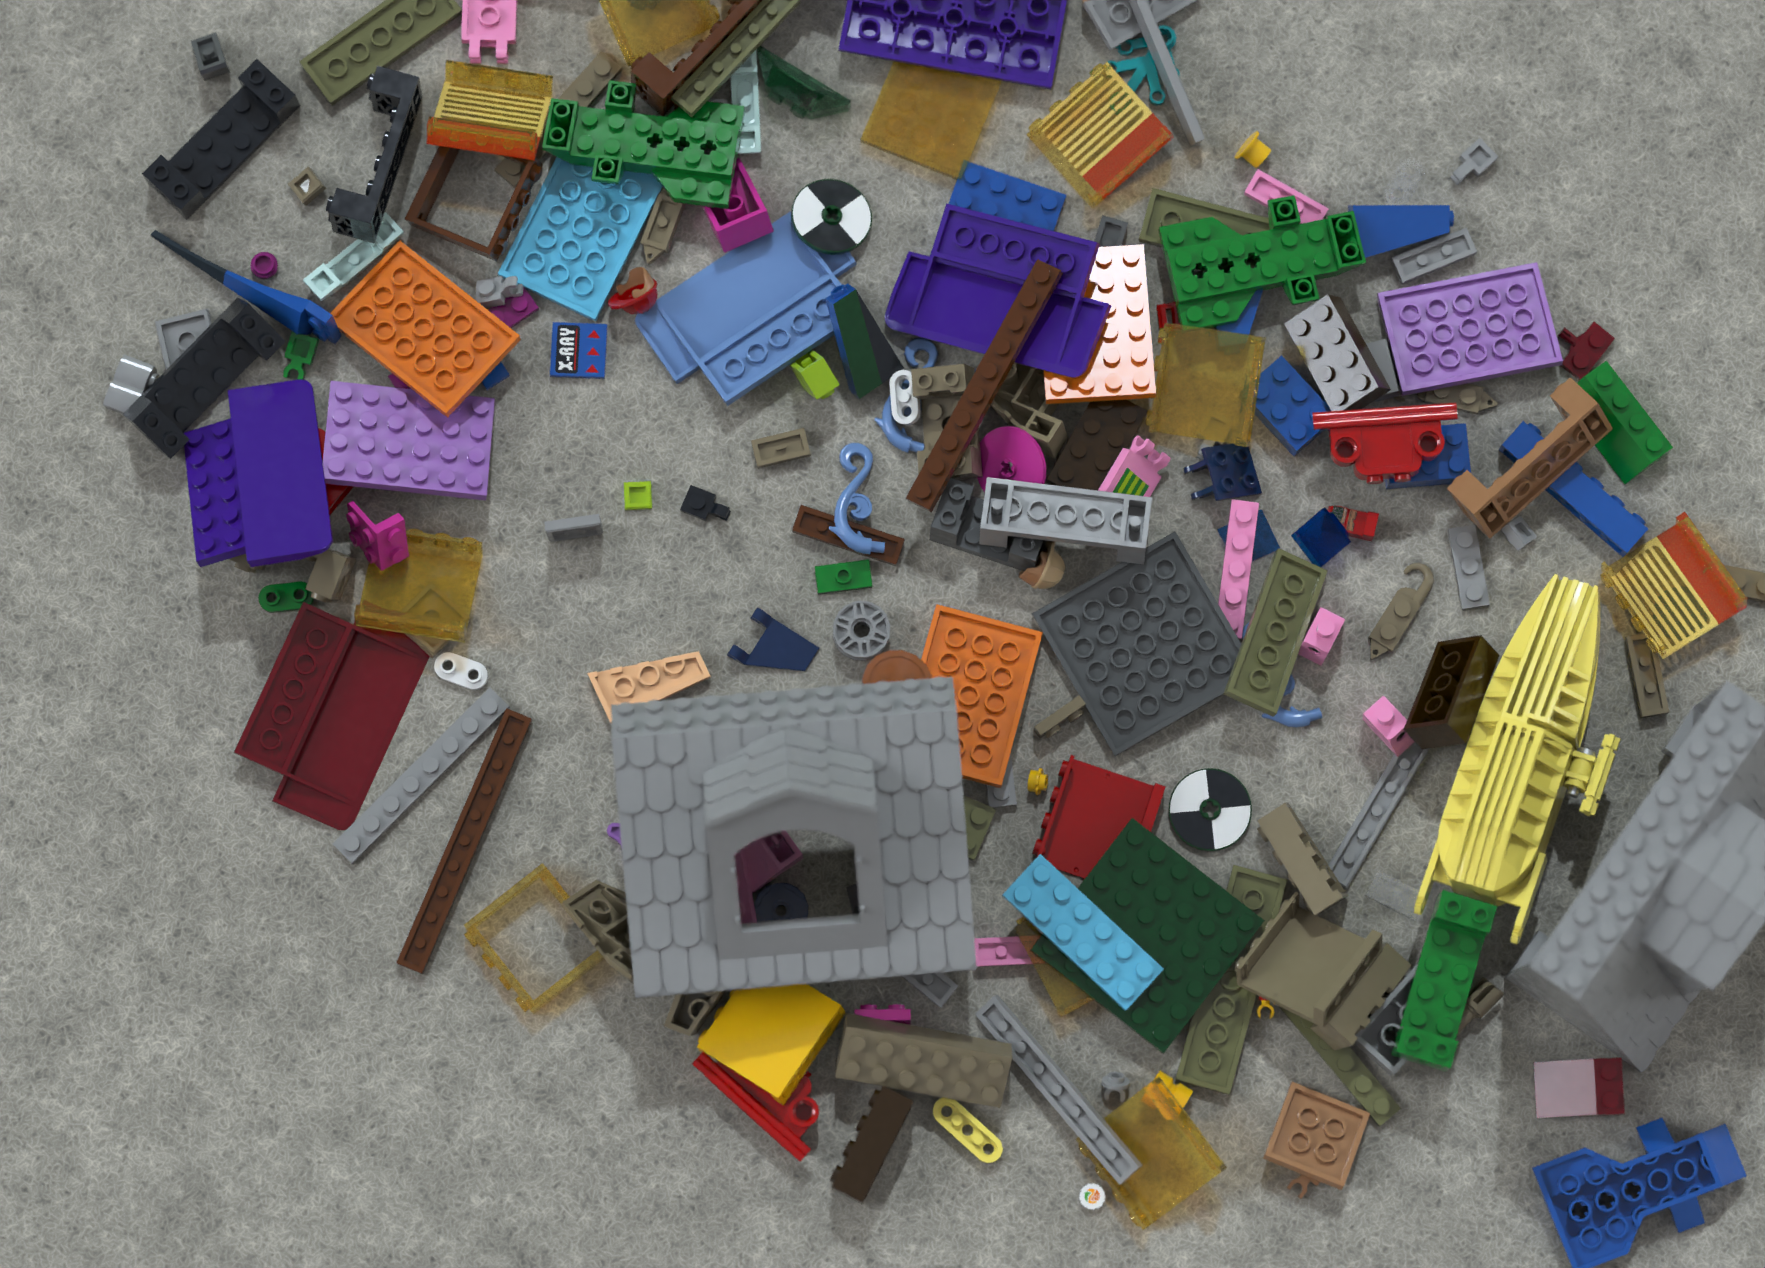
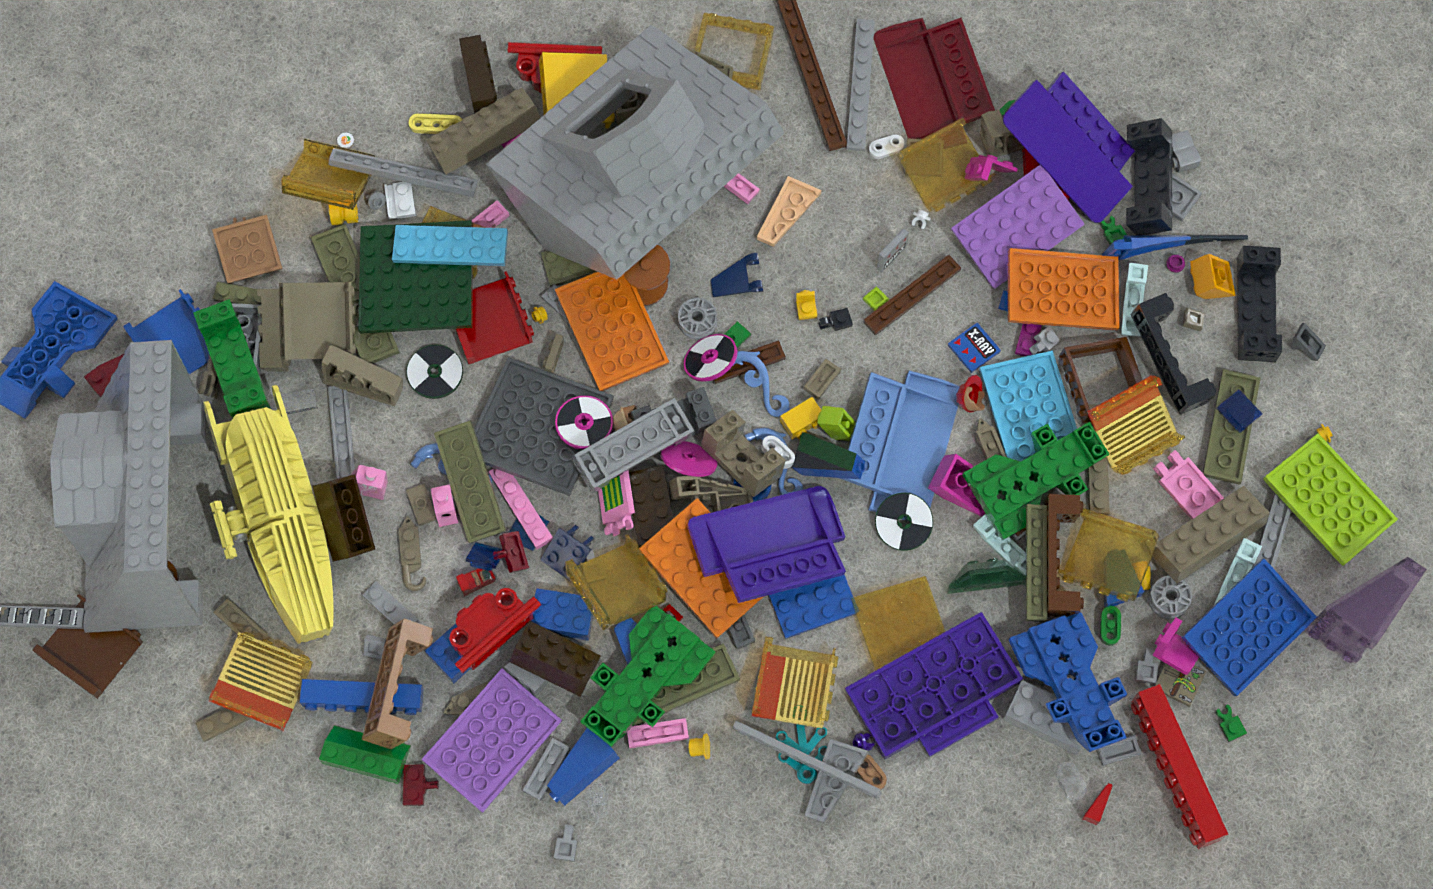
camera: 140 degrees right, 10 degrees down
(242, 213) = (1212, 277): none -> light orange slope
(359, 42) = (1239, 411): none -> clear blue piece
(499, 550) = (921, 215): none -> white plate
(593, 465) = (912, 295): none -> reddish brown plate
(724, 549) = (806, 305): none -> yellow bracket
(843, 418) = (801, 418): none -> yellow brick
(900, 551) = (710, 357): none -> piece
(984, 385) = (737, 479): reddish brown plate -> none
(1081, 24) = (860, 741): none -> dark purple plate
(1088, 1062) = (399, 200): none -> white plate
(1101, 622) = (571, 414): none -> piece
(1288, 518) = (512, 551): none -> dark red plate
(1345, 660) = (421, 504): none -> dark tan plate
(1485, 1093) = (177, 324): none -> blue panel

